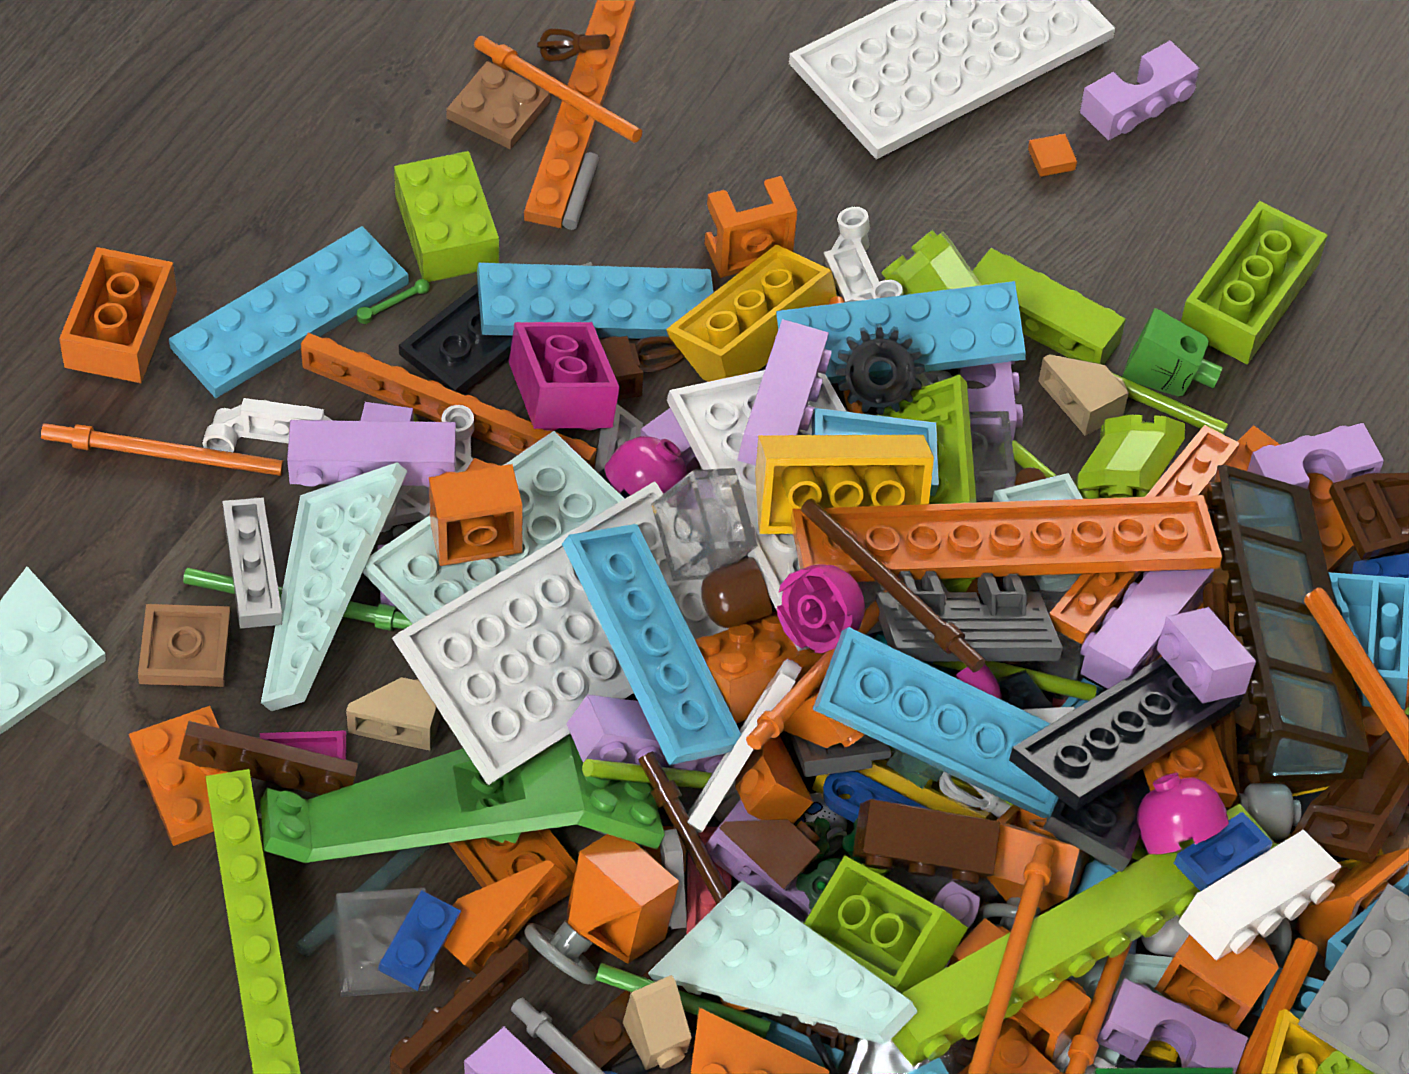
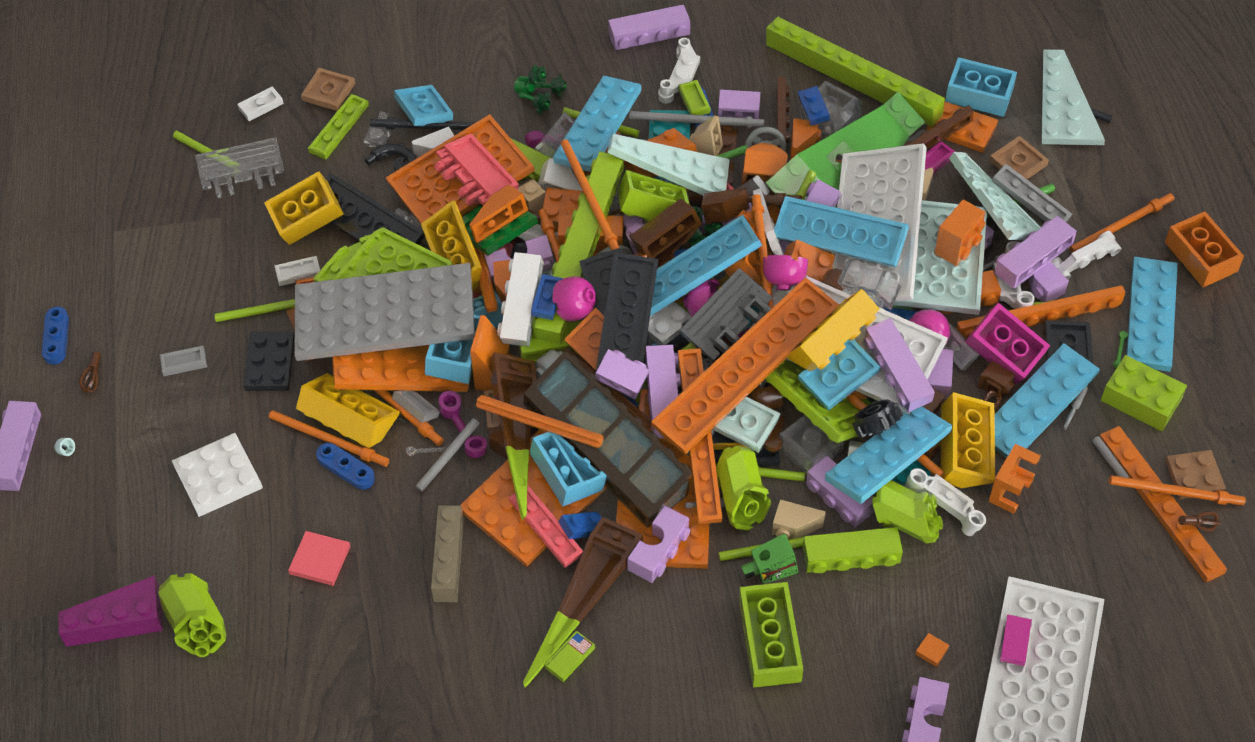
camera: 145 degrees right, 0 degrees up
(93, 794) = (981, 86): none -> medium azure brick
(946, 634) = (723, 284): reddish brown bar -> none
(951, 79) = (1015, 640): none -> dark pink tile

